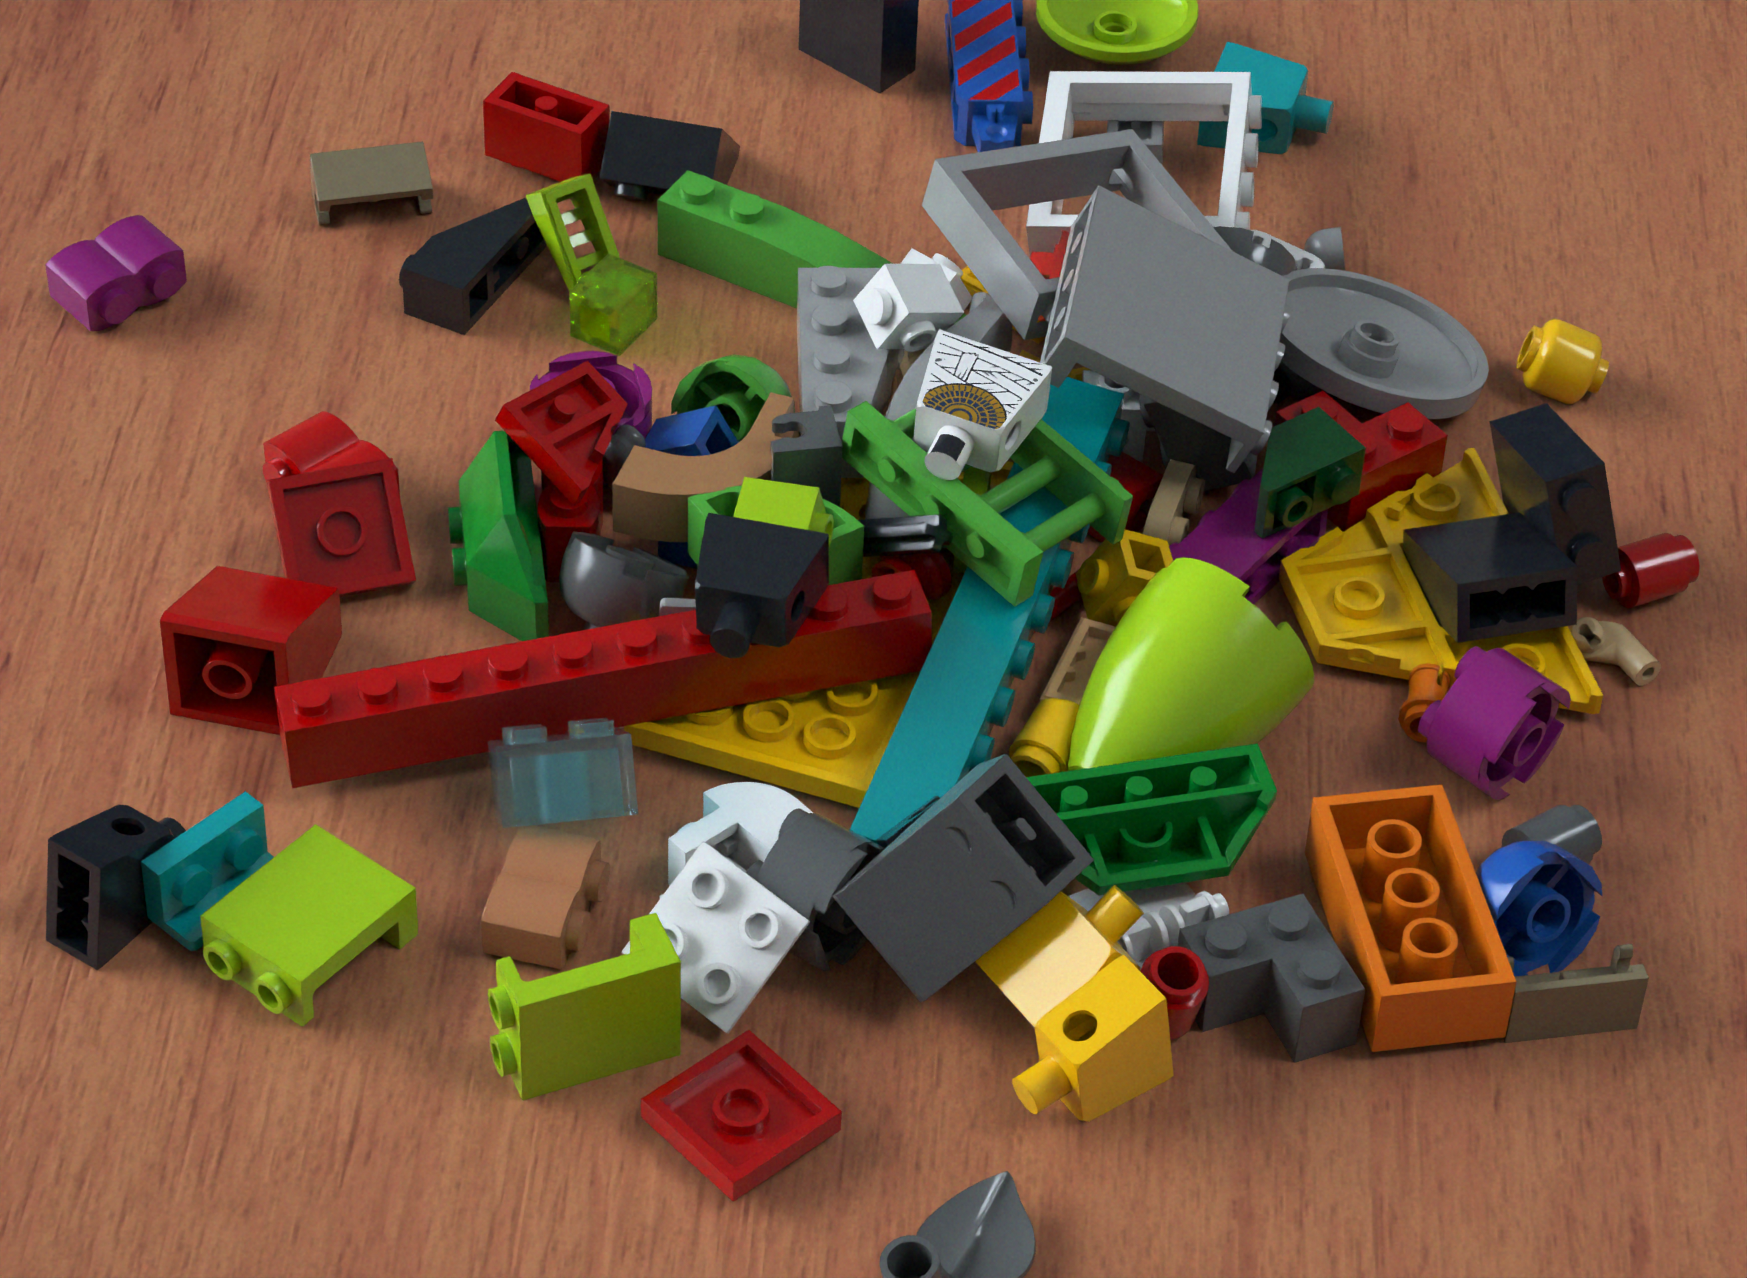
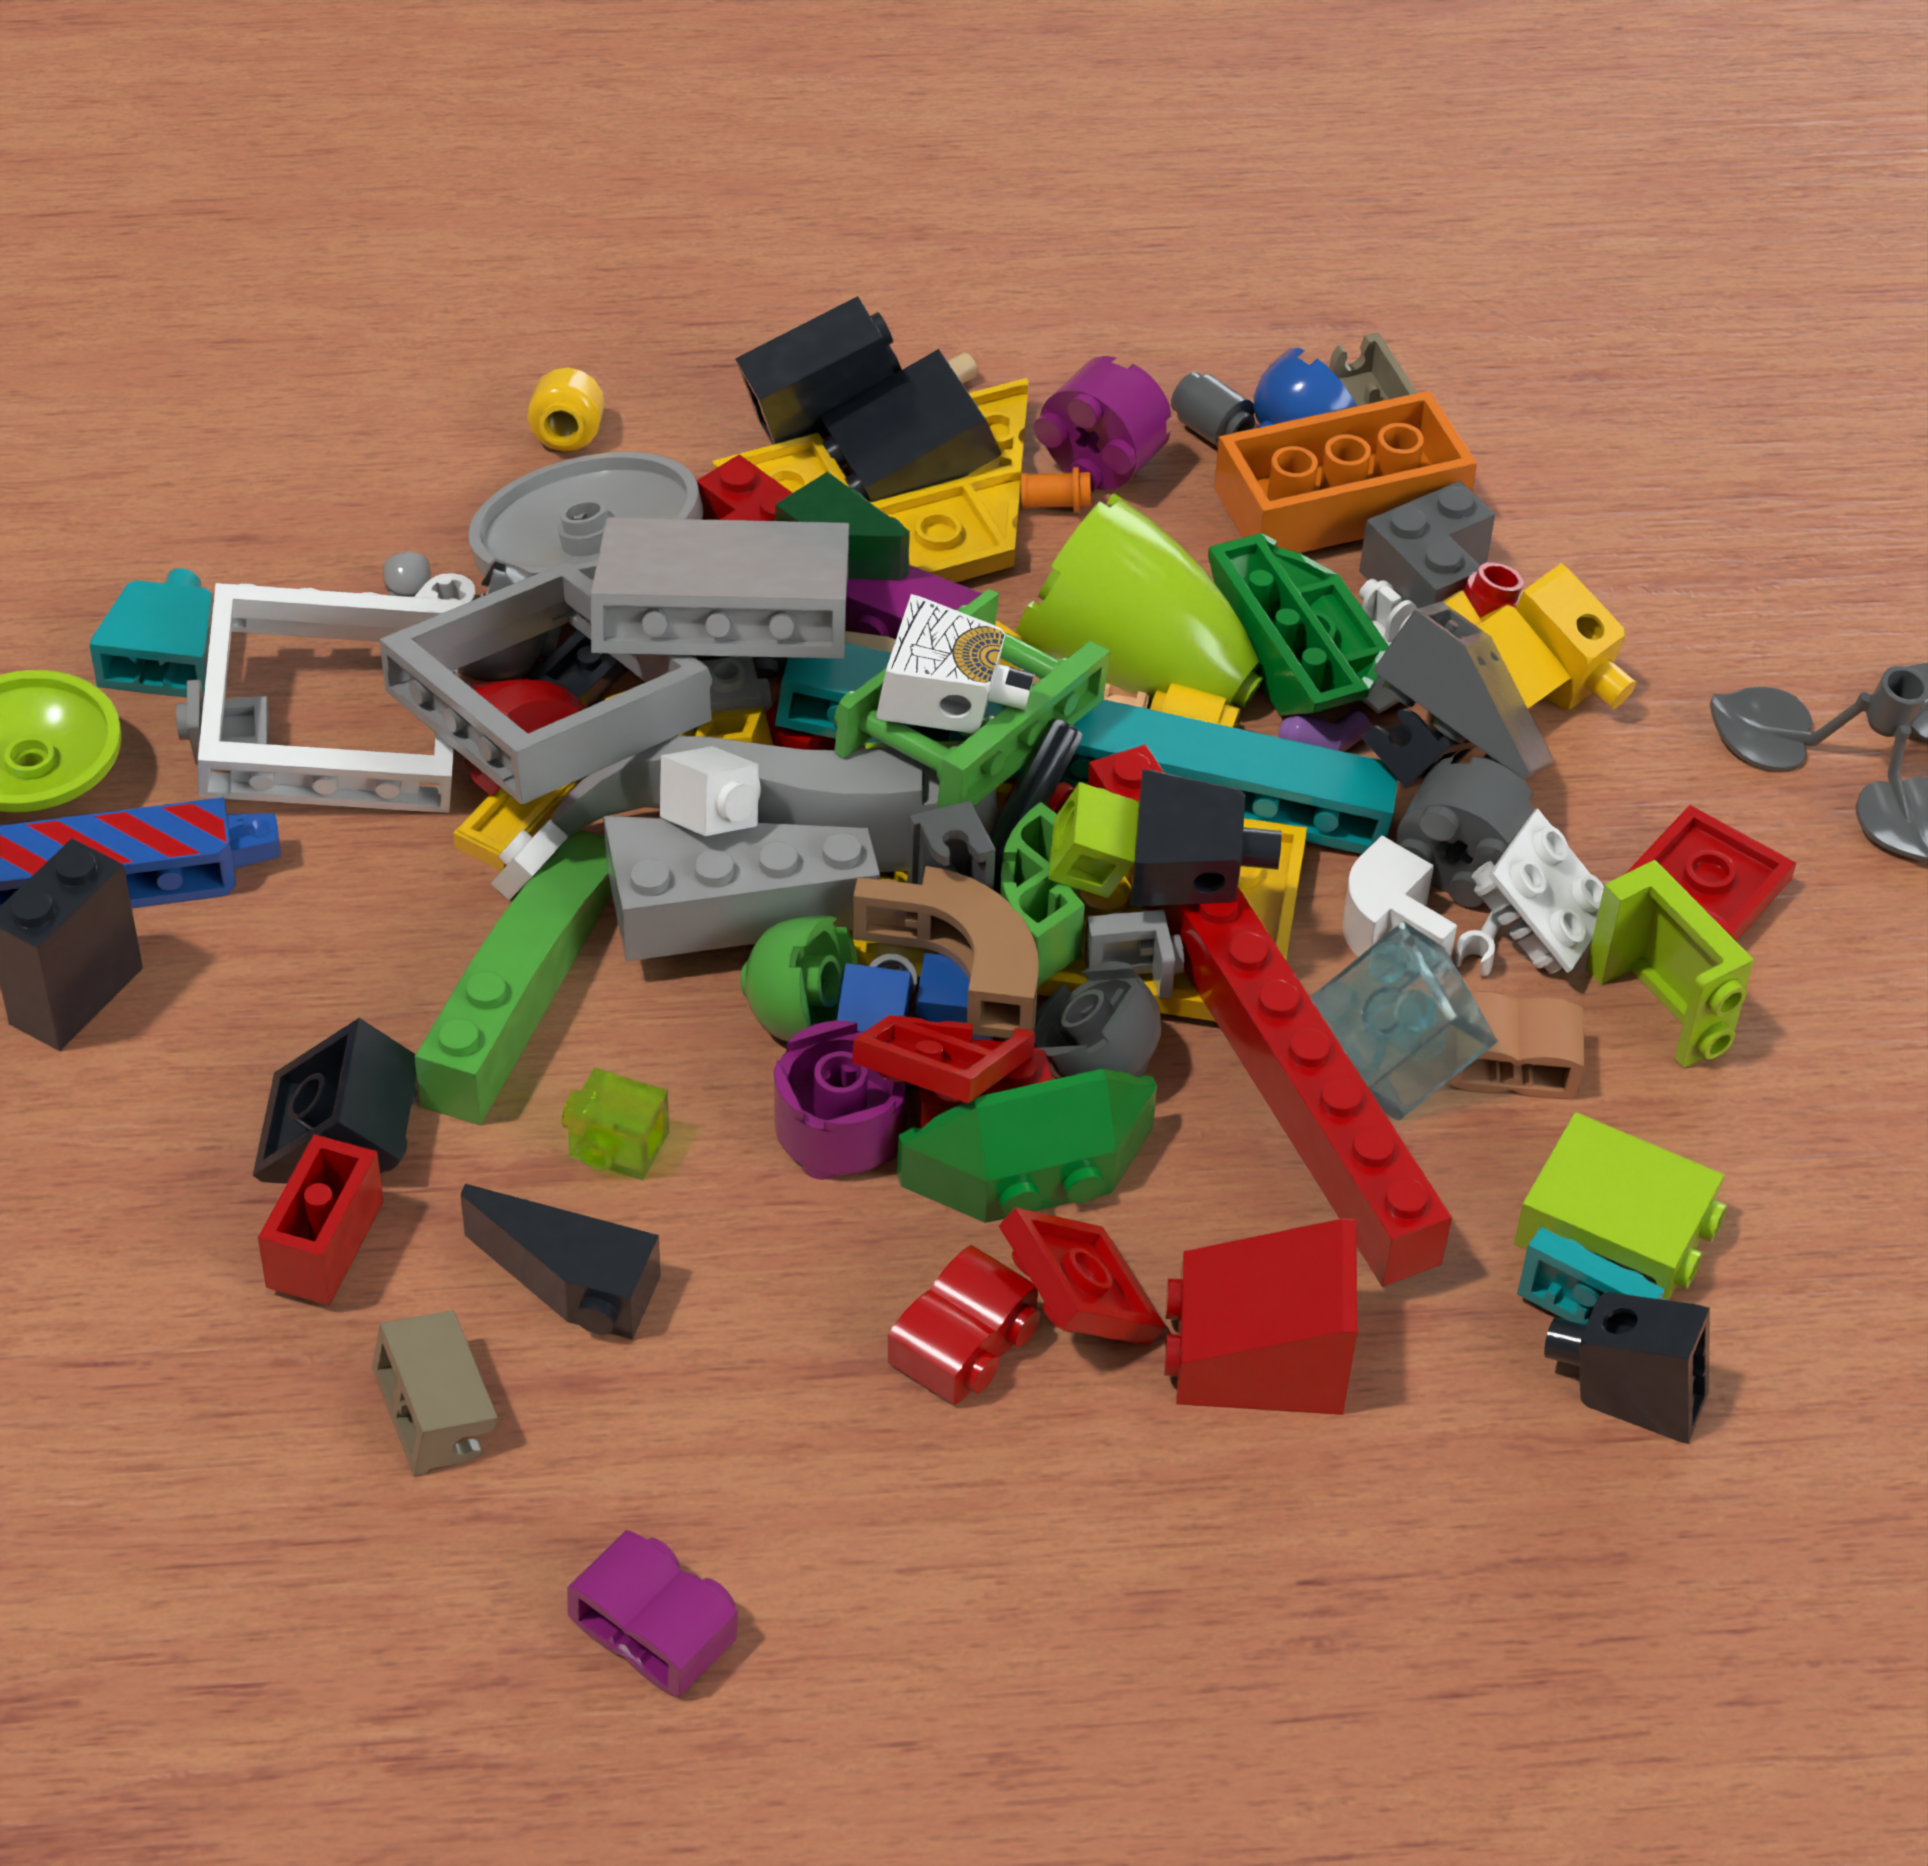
camera: 100 degrees left, 5 degrees up
(552, 225) = (515, 1158): lime slope -> none

